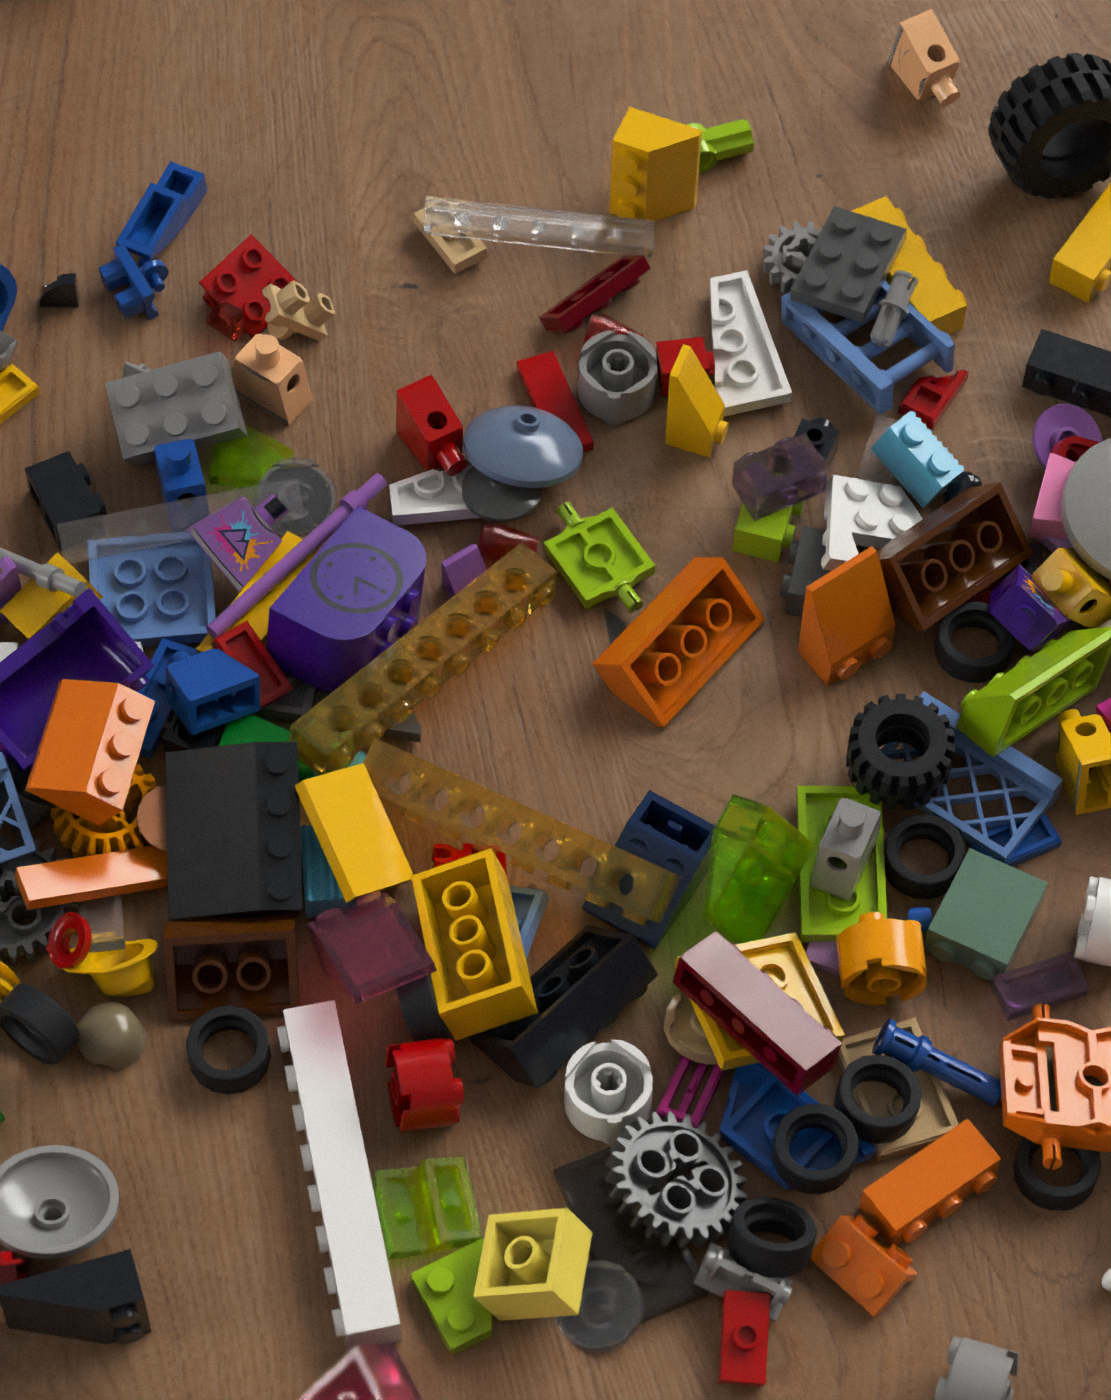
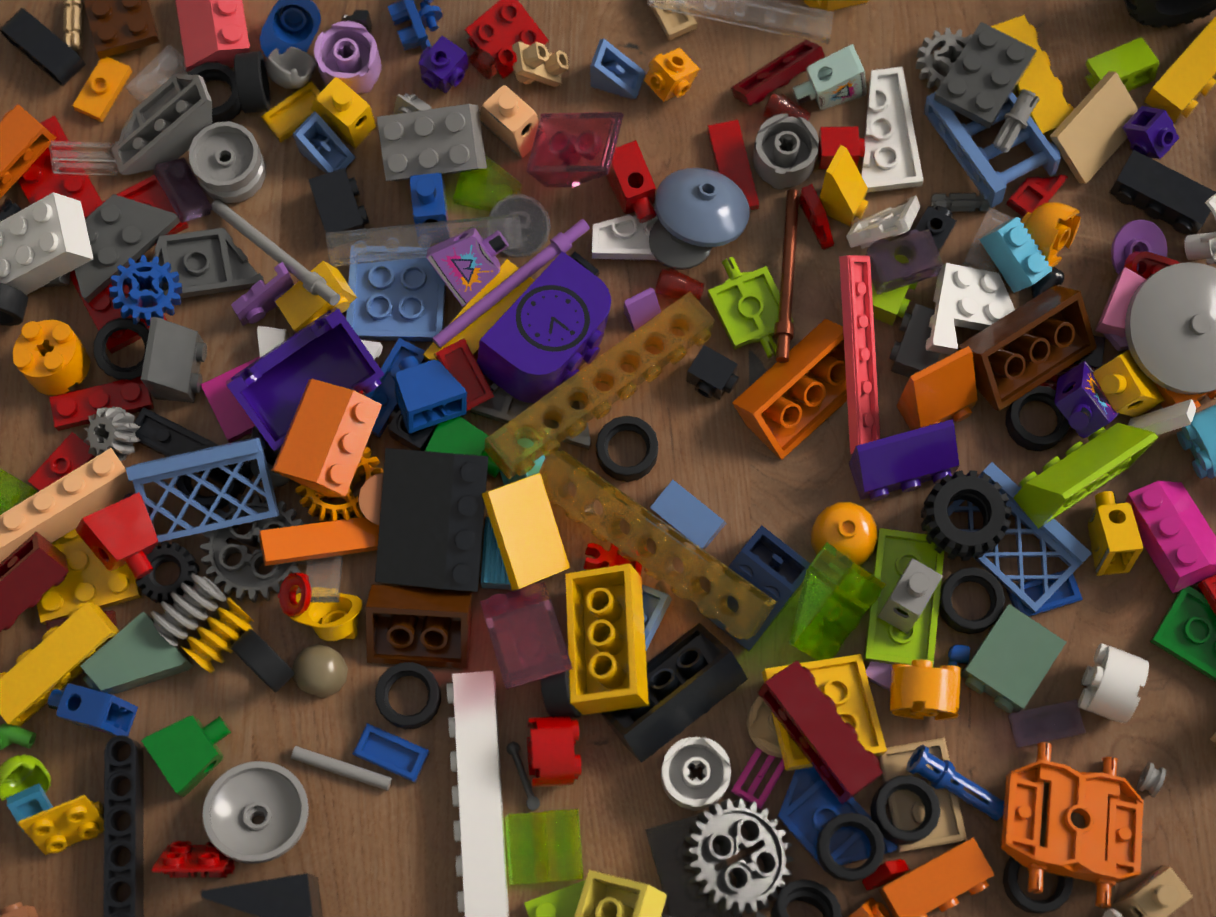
camera: 10 degrees right, 15 degrees up
(33, 430) = (322, 145): none -> medium blue slope
(56, 330) = (348, 54): none -> lavender brick
(60, 389) = (342, 110): none -> yellow torso
(153, 1147) = (341, 768): none -> light grey bar
(177, 325) = (443, 65): none -> dark purple brick
(214, 1122) = (391, 753): none -> blue tile
(354, 395) = (573, 147): none -> clear pink slope
(392, 312) = (615, 71): none -> medium blue slope
(405, 1158) = (532, 802): none -> dark grey hinge
(463, 307) = (671, 74): none -> light orange brick
(470, 706) = (631, 424): none -> black tyre
(557, 795) = (688, 515): none -> medium blue hinge
(563, 635) = (712, 373): none -> black brick
(644, 569) = (784, 327): none -> copper bar
(665, 291) = (833, 80): none -> light aqua torso
(666, 446) = (816, 216): none -> red tile
(743, 588) = (859, 349): none -> coral tile
(759, 782) = (847, 529): none -> light orange cylinder
(761, 434) = (884, 224): none -> white wing
(813, 701) = (905, 460): none -> dark purple slope
(844, 413) = (960, 201): none -> dark grey axle
(862, 1177) = (885, 873): none -> red tile
(960, 425) = (1052, 228): none -> light orange cylinder
(994, 311) = (1095, 127): none -> tan tile
(1014, 247) = (1132, 62): none -> lime hinge
(1060, 308) = (1151, 132): none -> dark purple brick

